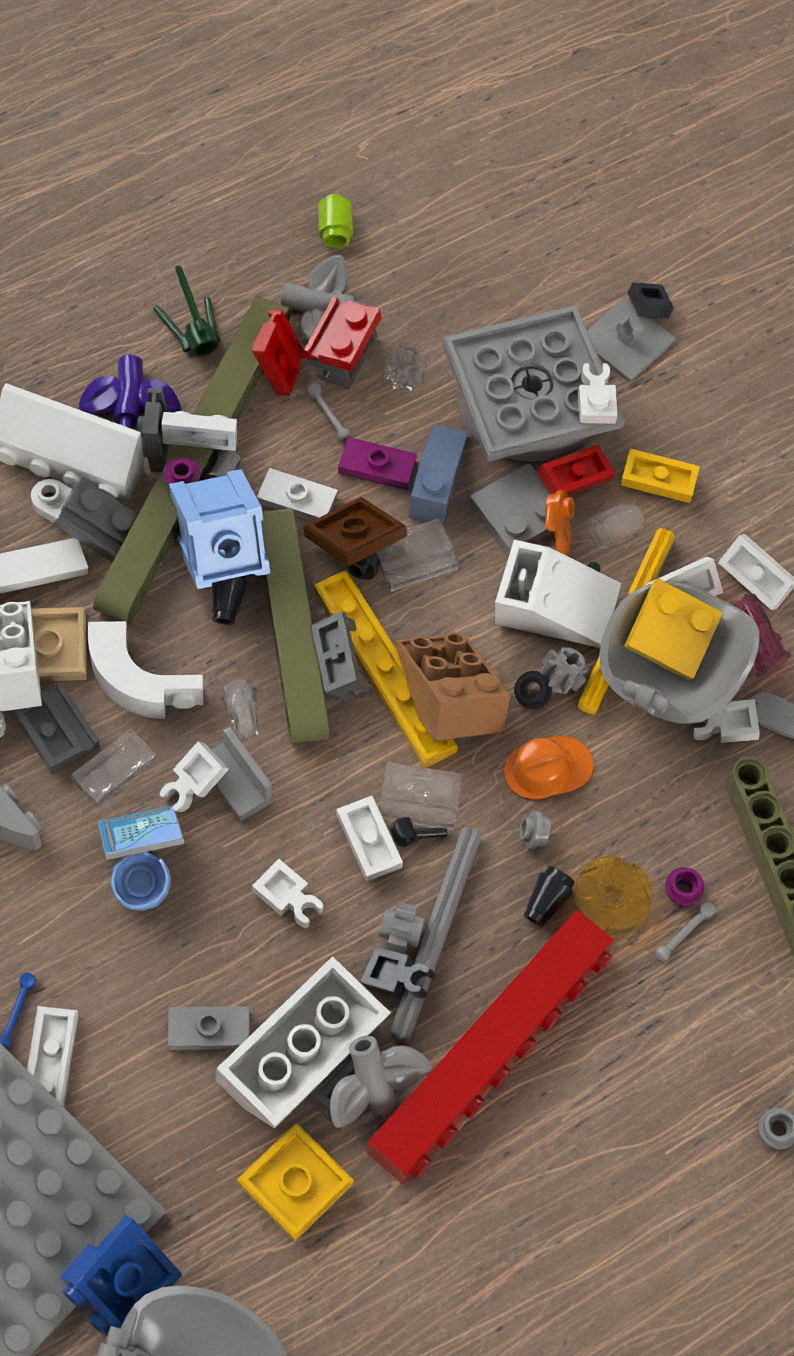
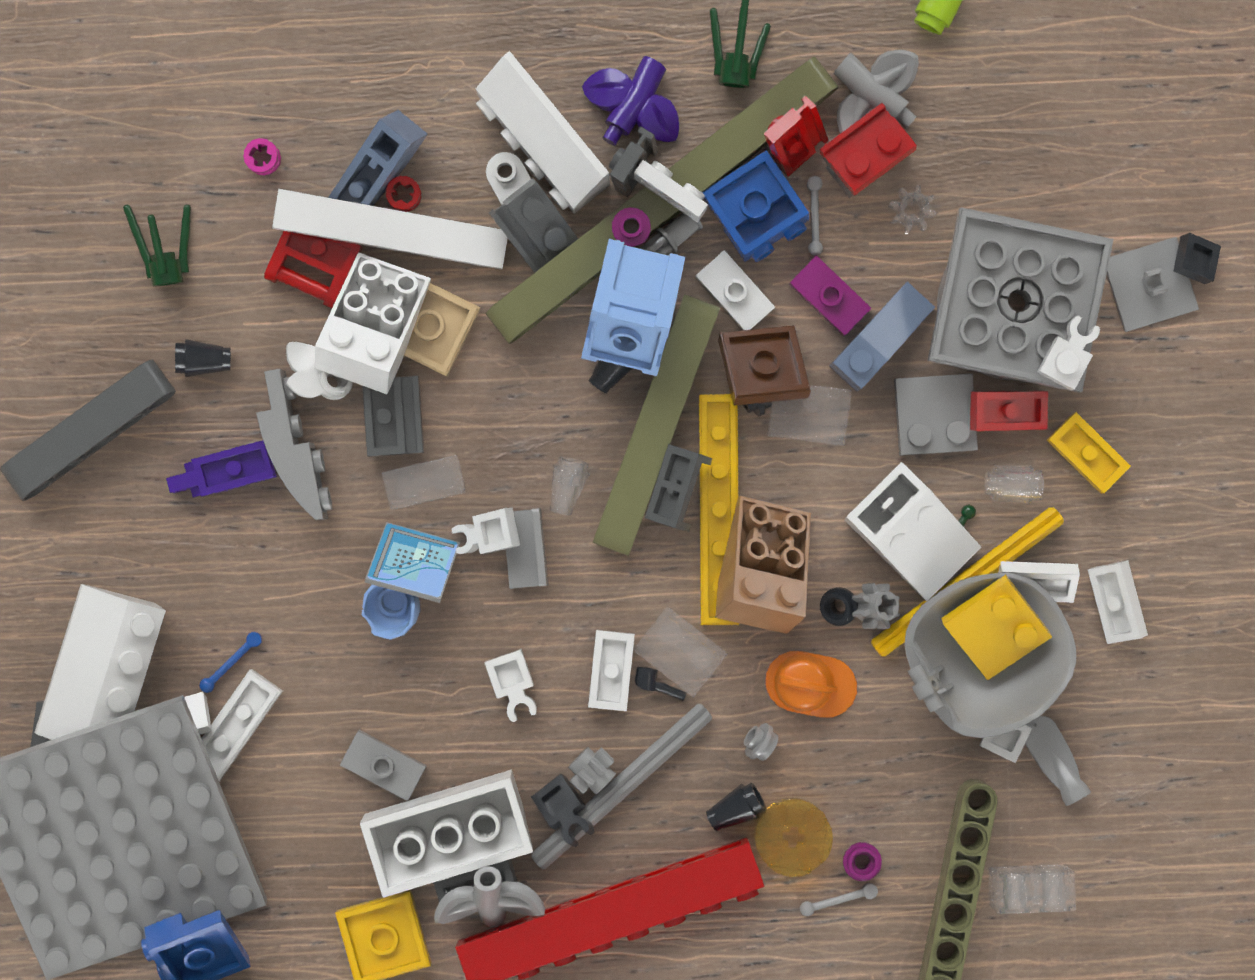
camera: 35 degrees right, 25 degrees up
(130, 685) = (472, 393): white arch -> none
(280, 421) = (757, 207): none -> blue plate
(558, 512) = (960, 455): orange plate -> none
(770, 649) = (1078, 687): clear pink plate -> none

